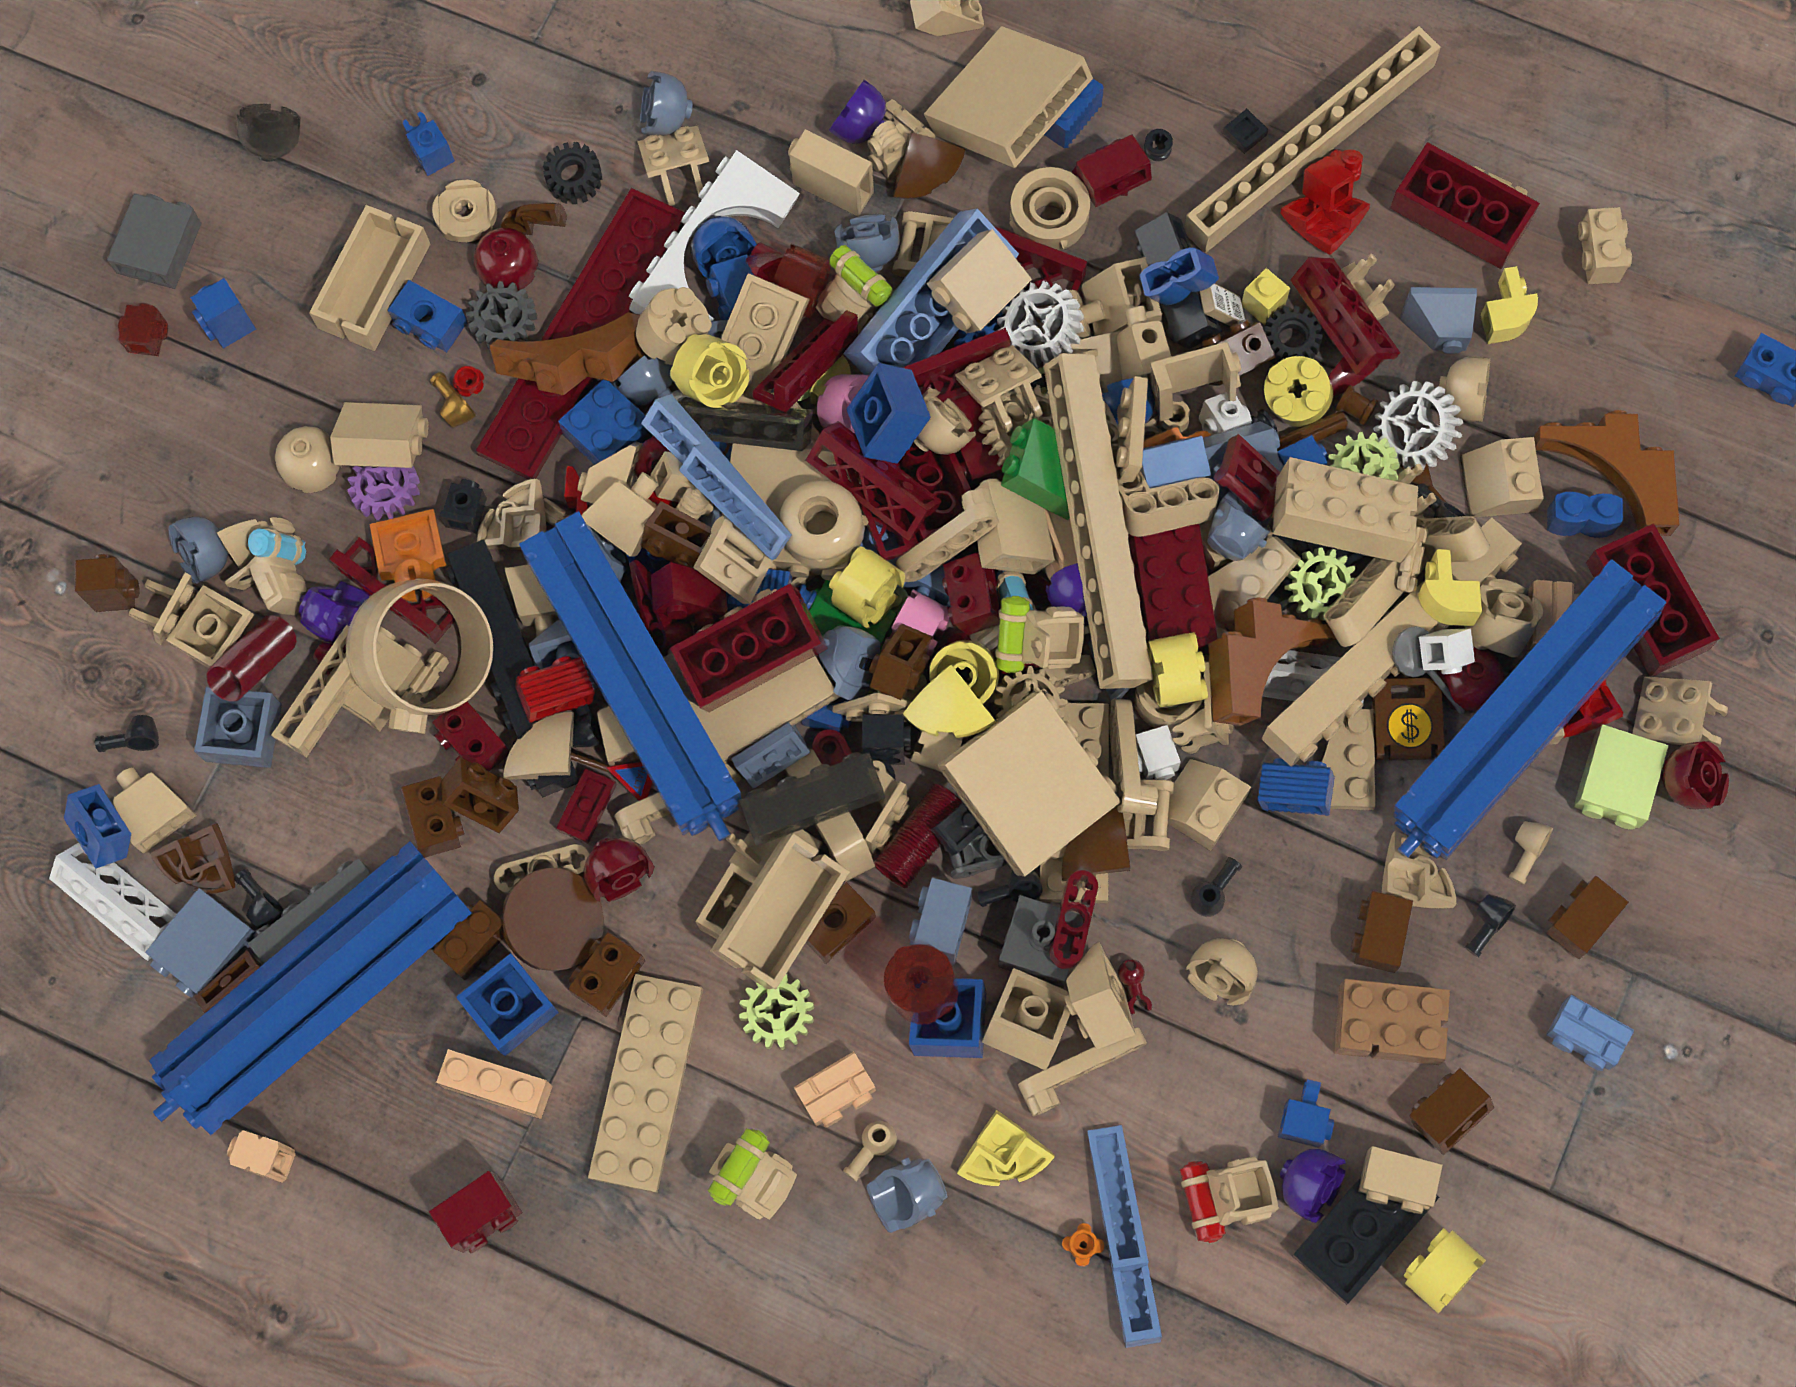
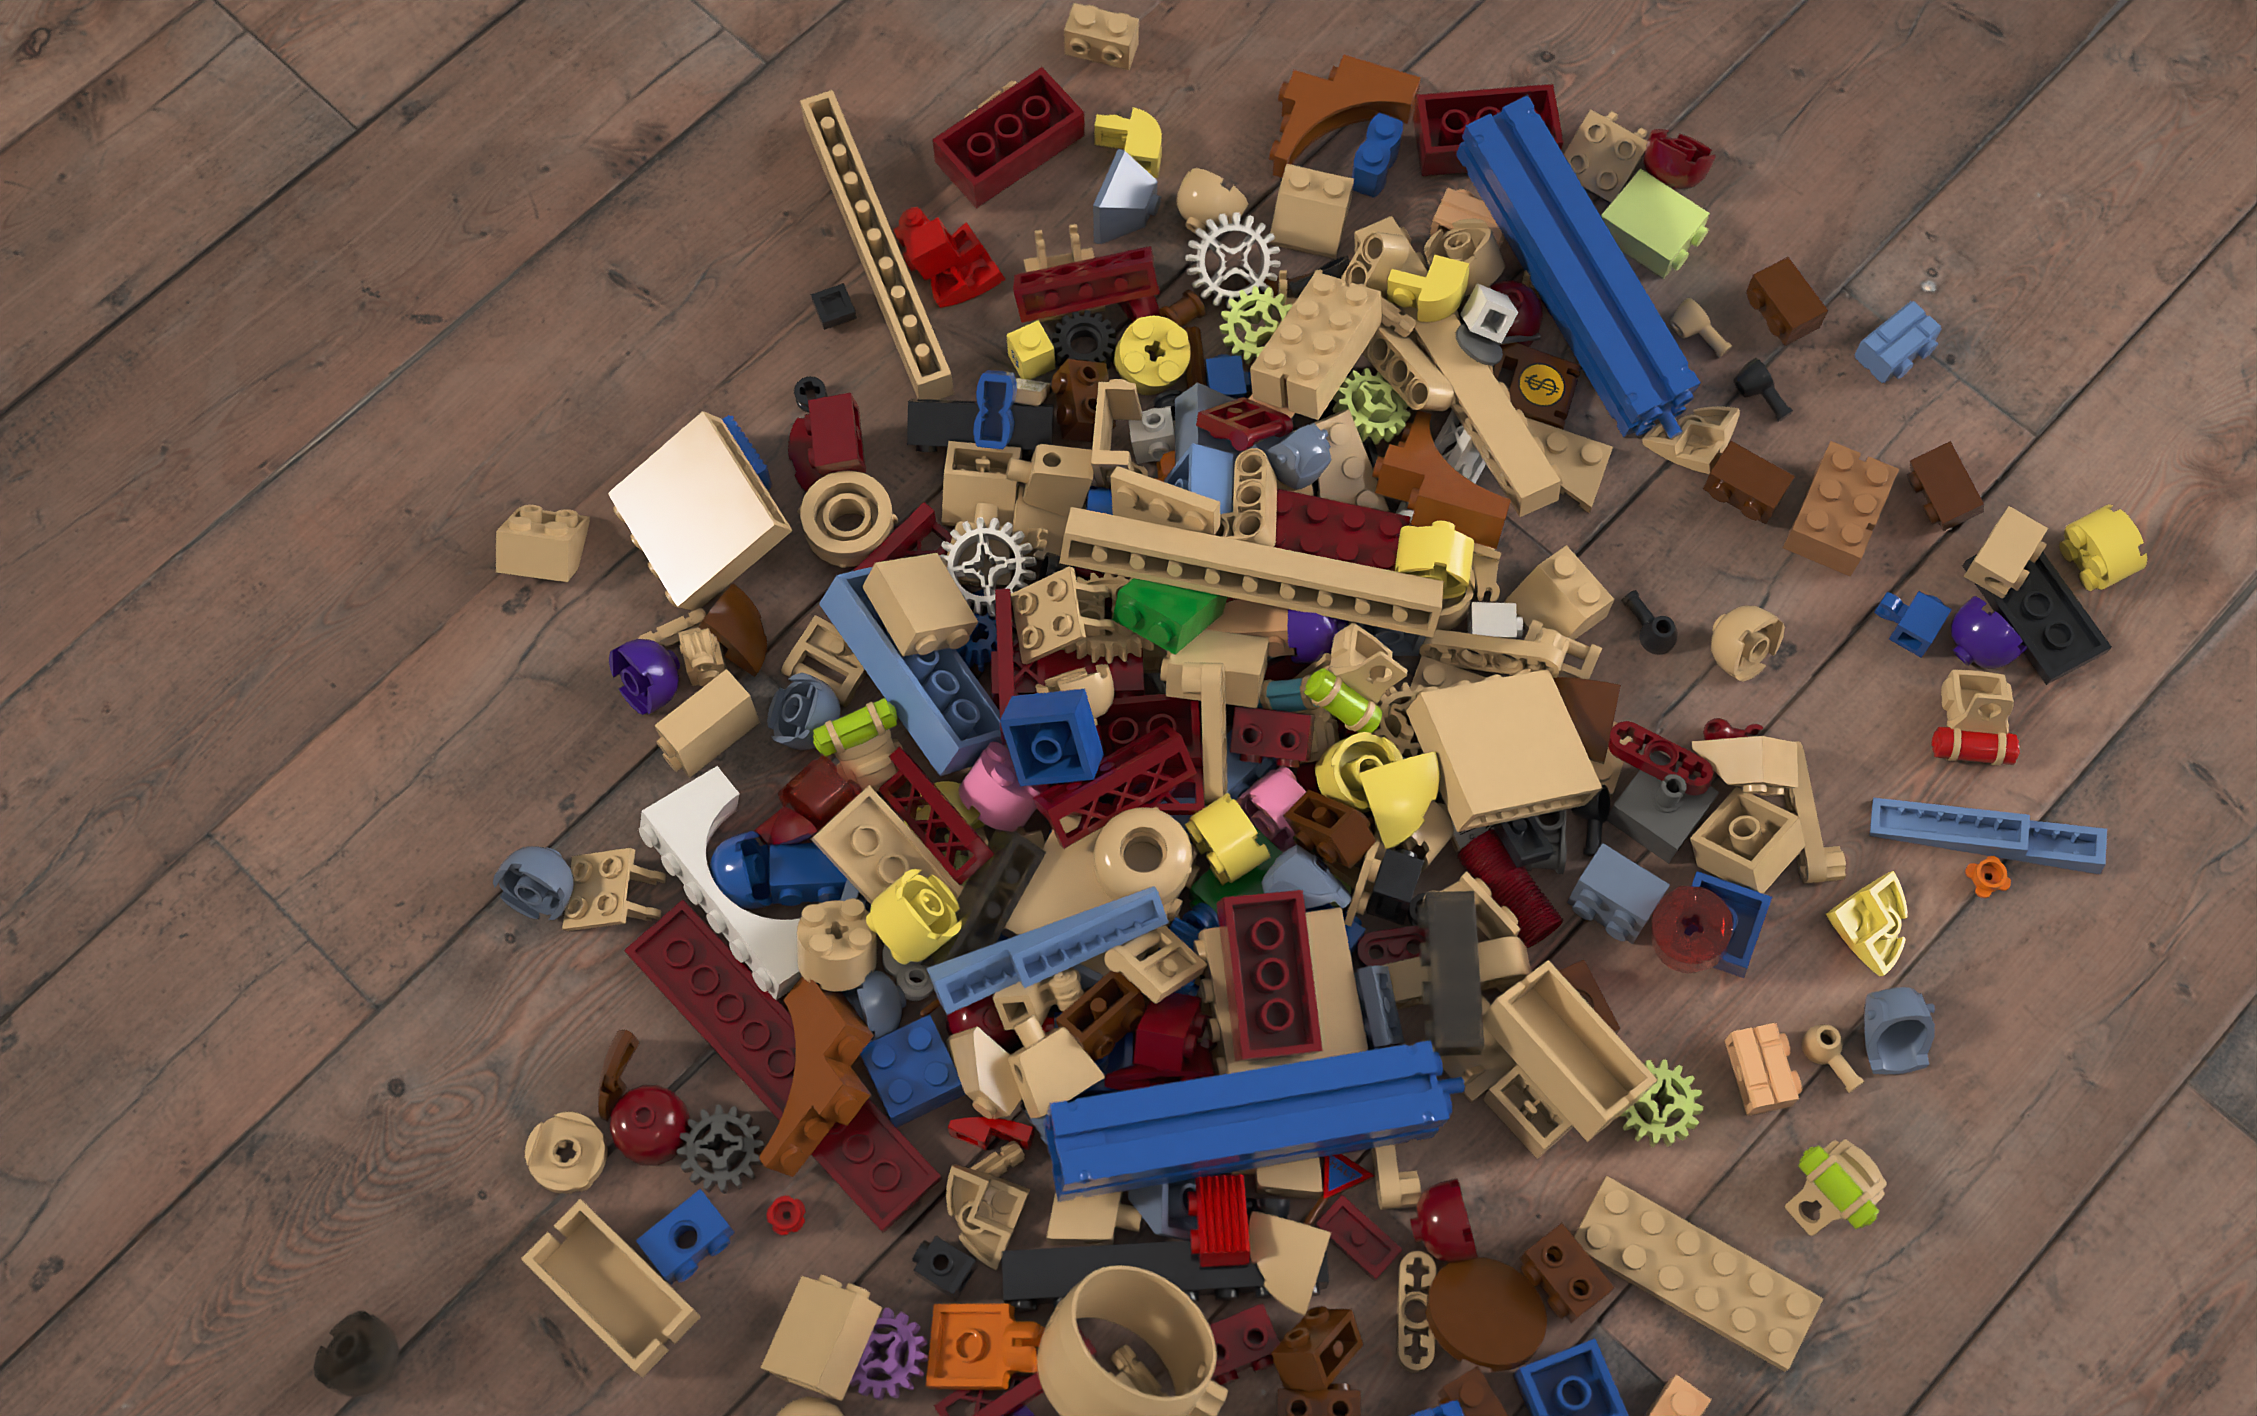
camera: 75 degrees left, 5 degrees down
(428, 145) = (463, 1168): blue brick -> none
(455, 409) = (816, 1240): pearl gold bar -> none
(568, 157) = (566, 990): black tyre -> none
(1296, 787) = (1577, 509): blue brick -> none

